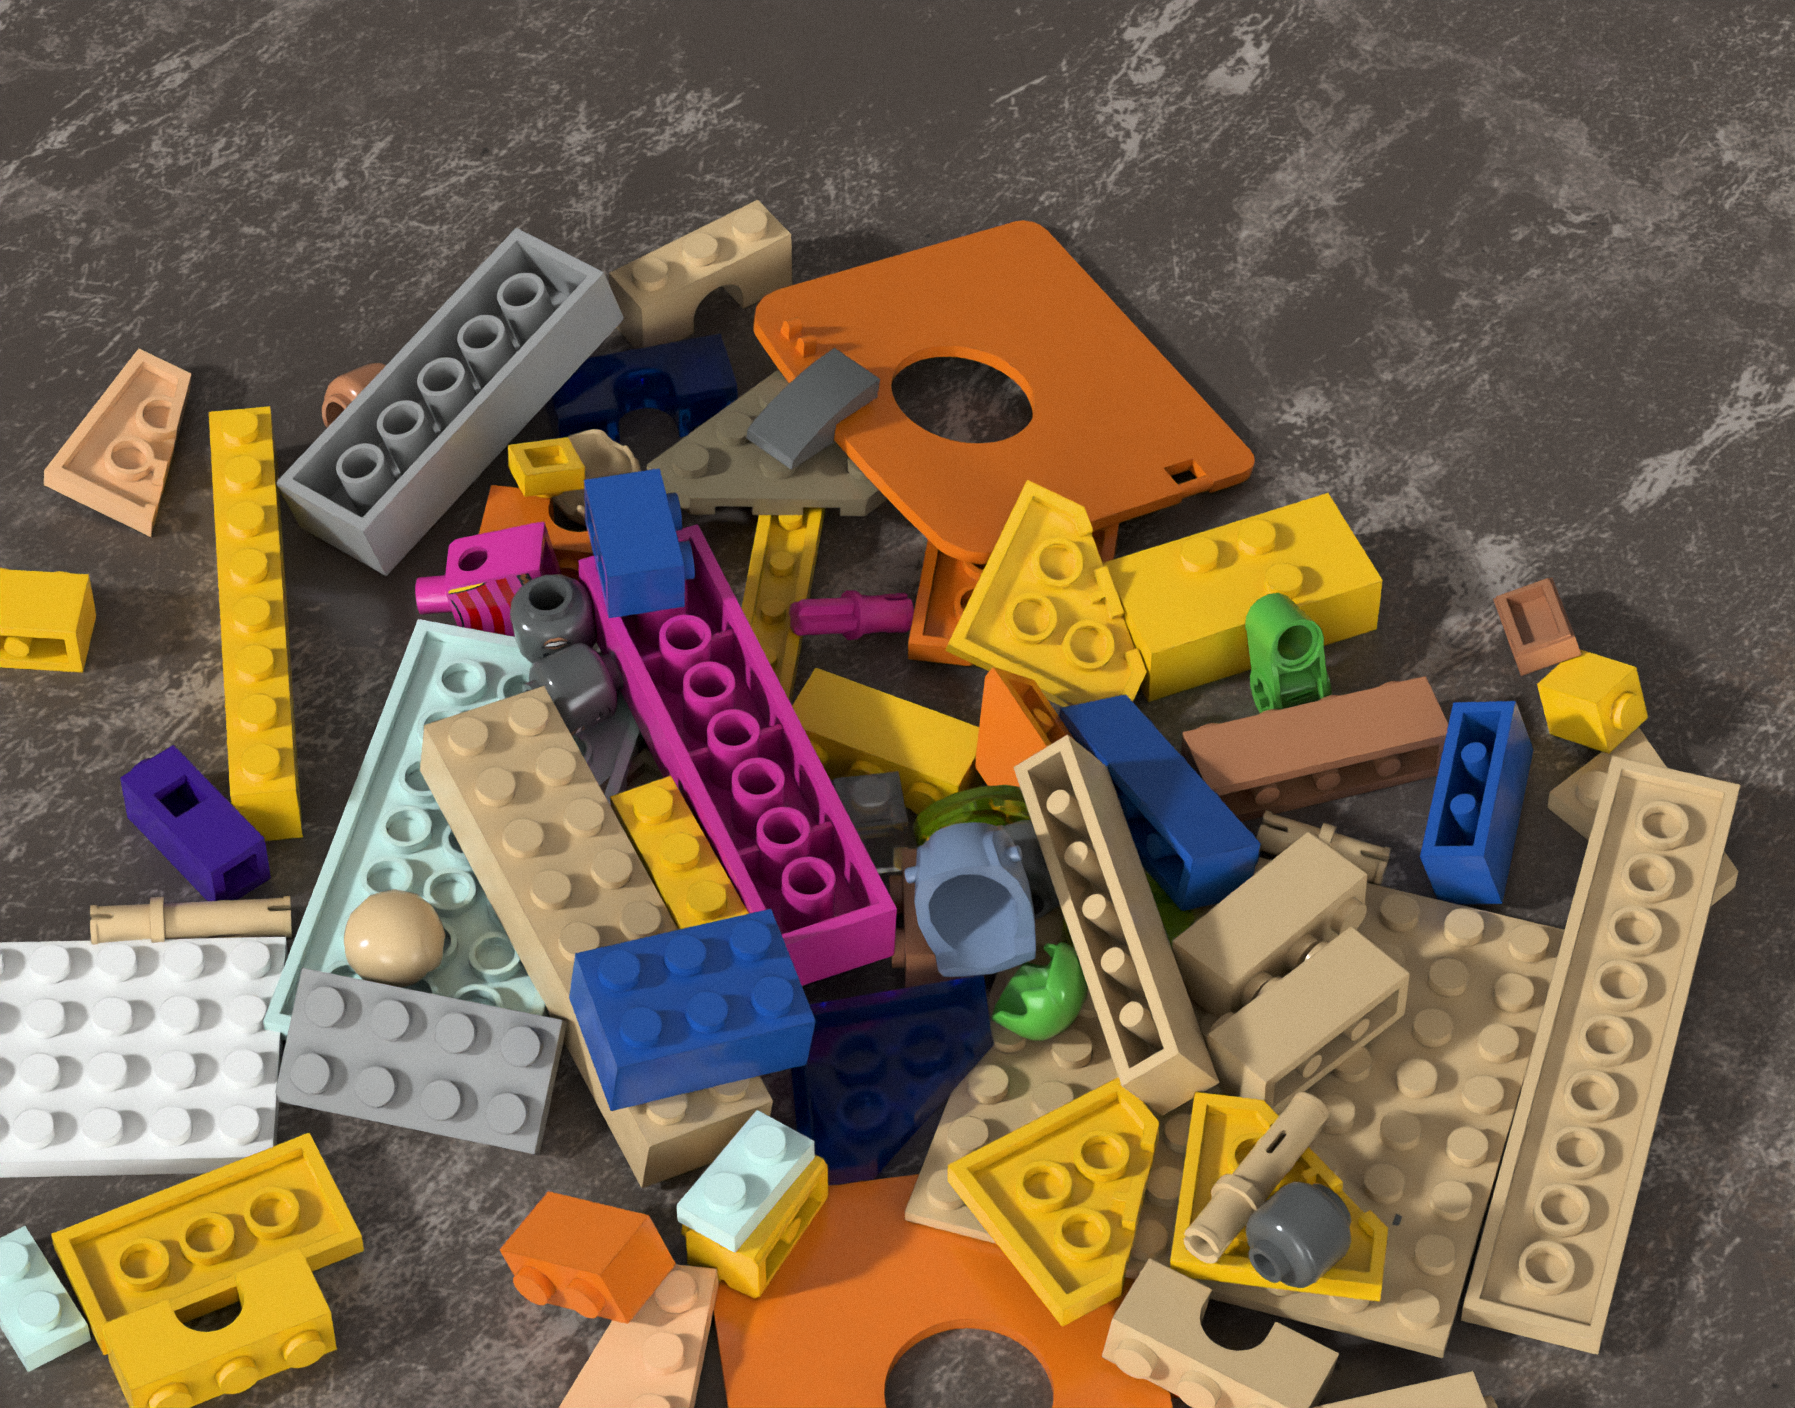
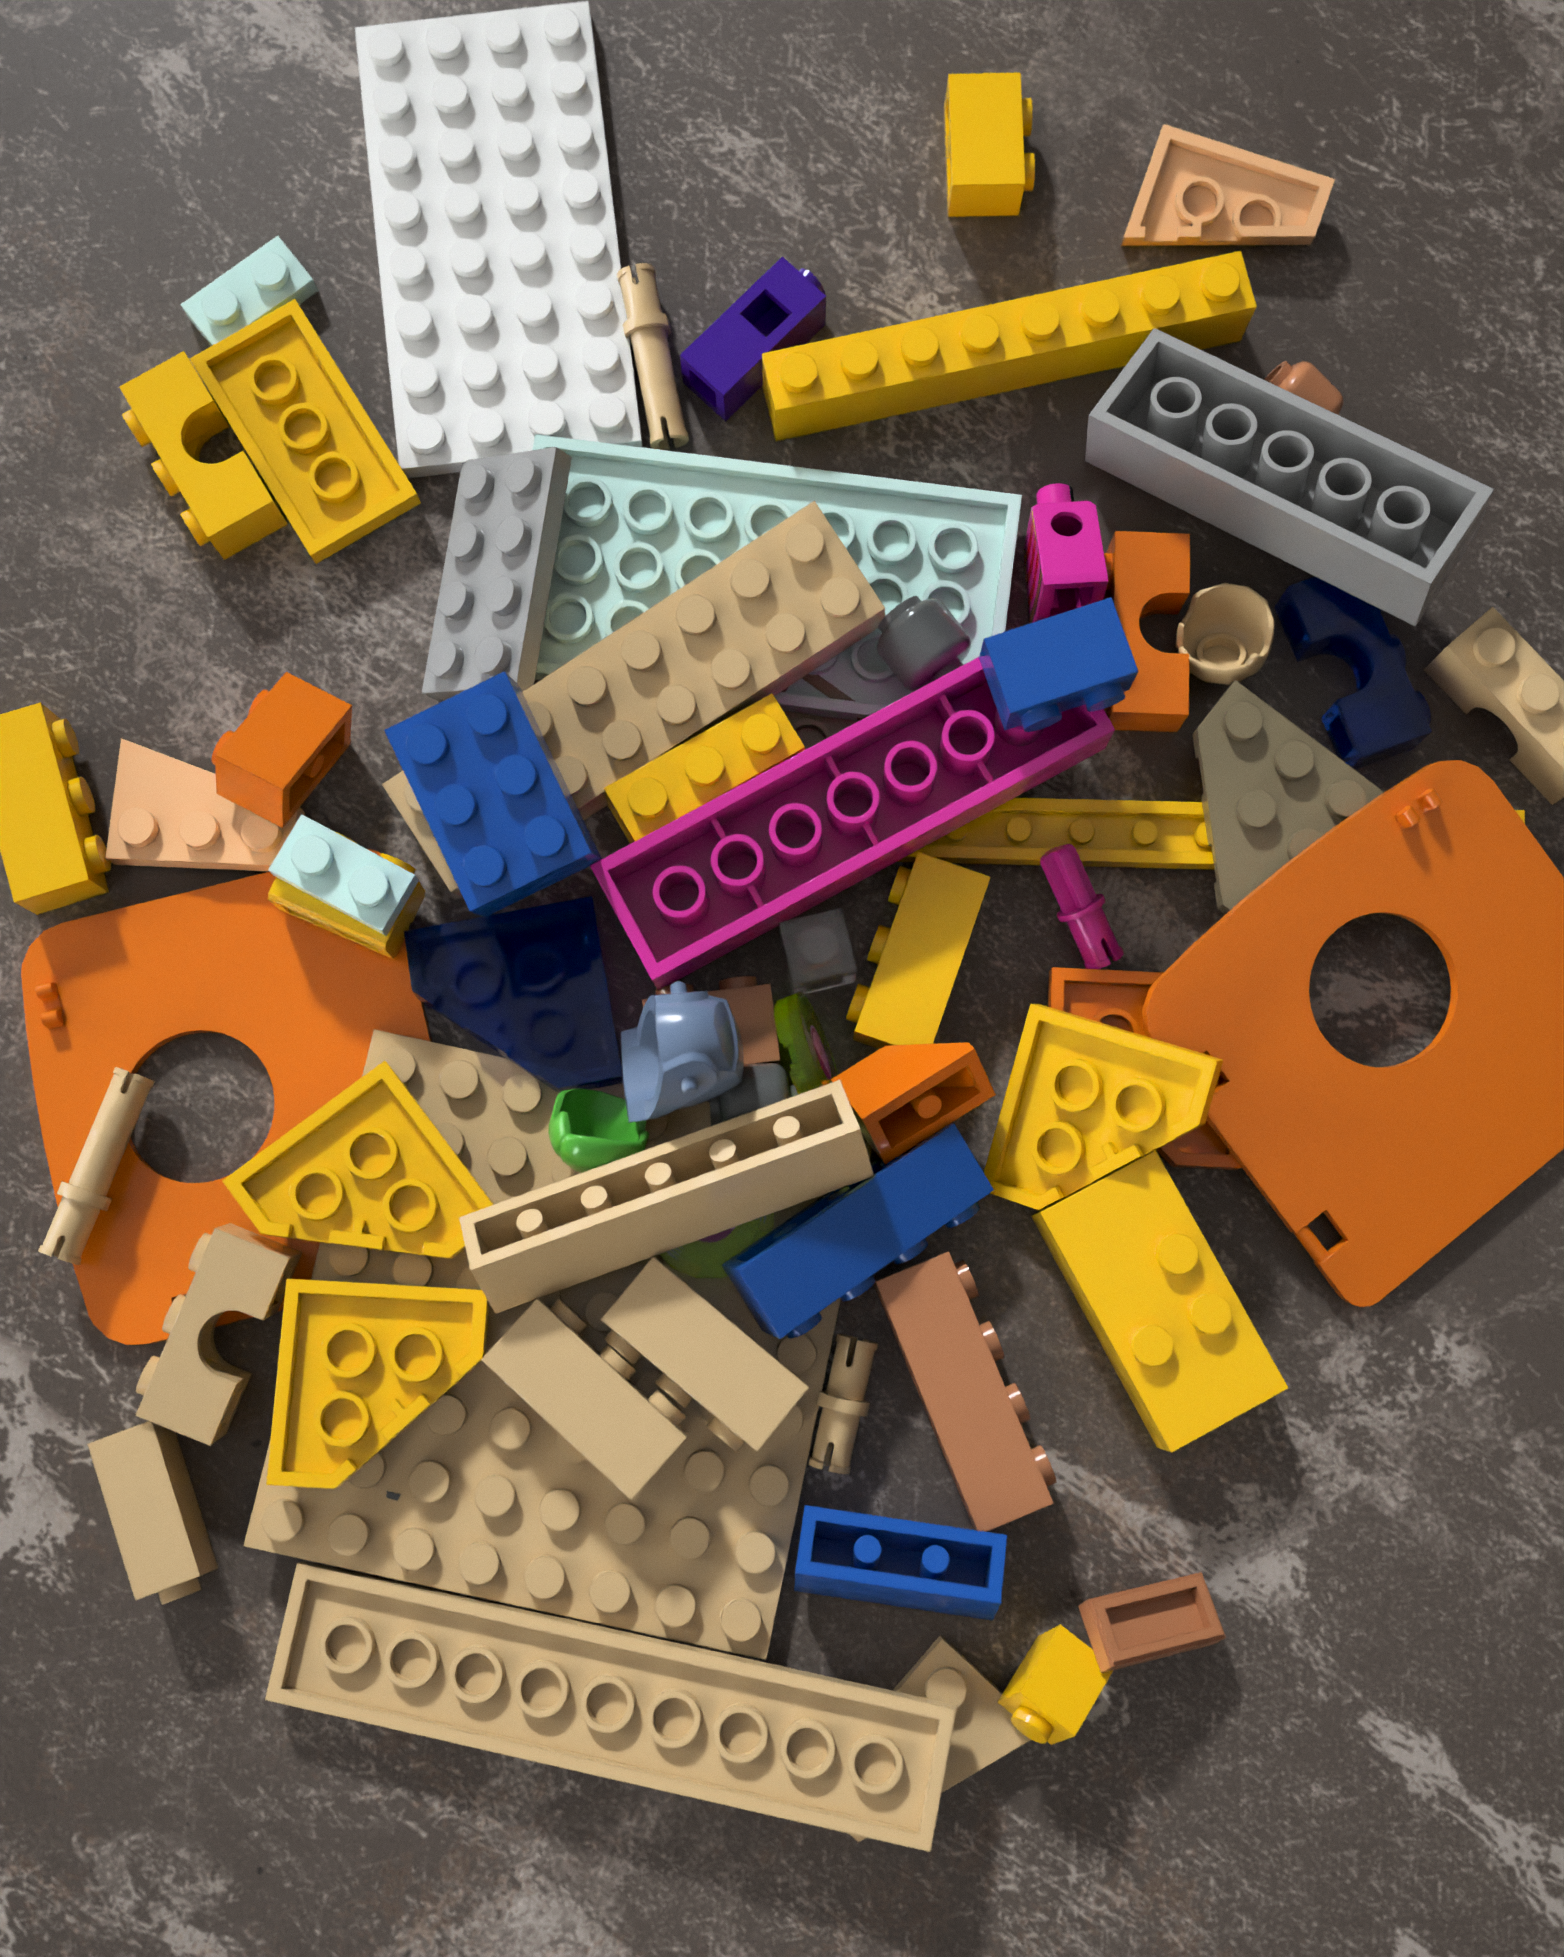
camera: 85 degrees right, 30 degrees up
(394, 938) = (621, 529): tan hair -> none
(546, 467) = (1205, 578): yellow plate -> none
(551, 616) = (998, 602): dark grey head -> none
(810, 406) = (1317, 832): dark grey slope -> none
(1247, 1188) = (343, 1343): tan pin -> none
(1285, 654) = (1069, 1351): bright green piece -> none
(1298, 1234) = (284, 1400): dark grey head -> none

